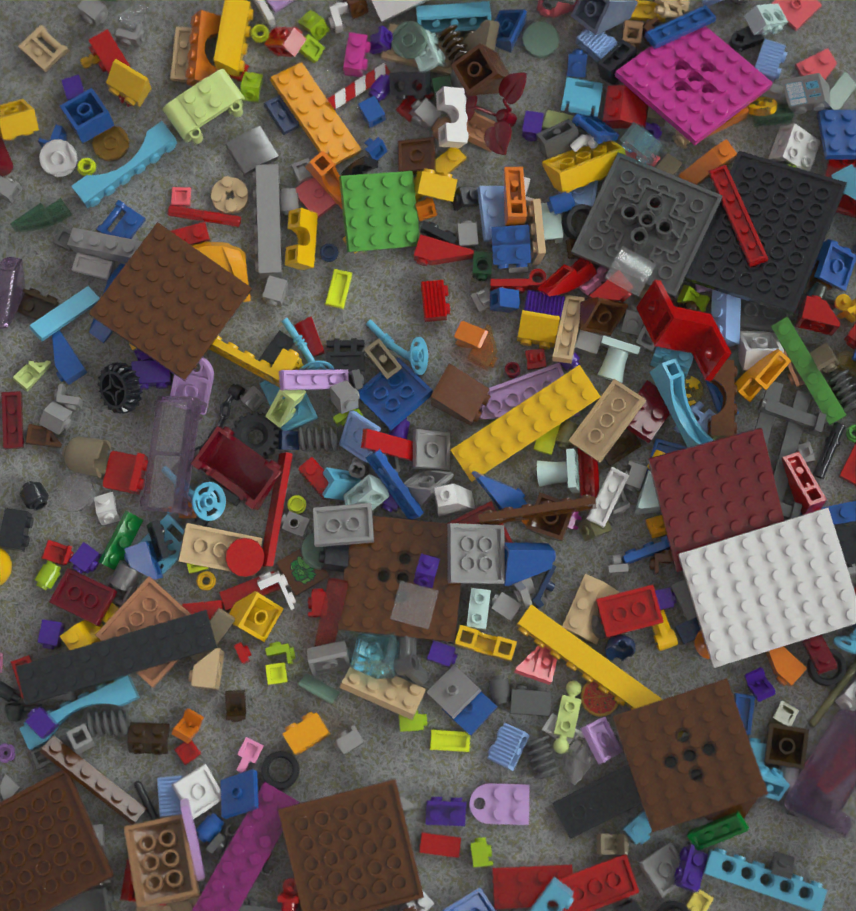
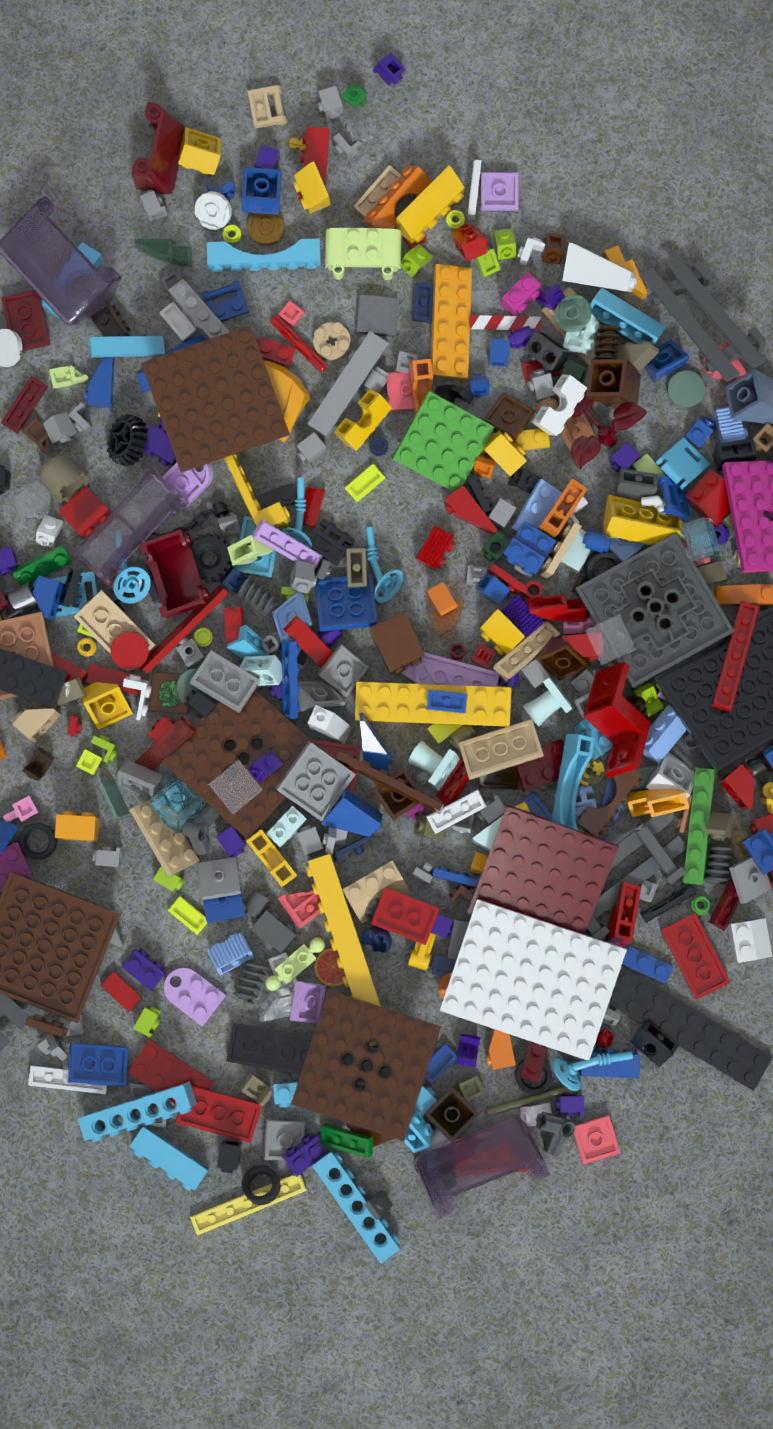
camera: 30 degrees right, 5 degrees up
(536, 411) = (447, 701): none -> blue plate

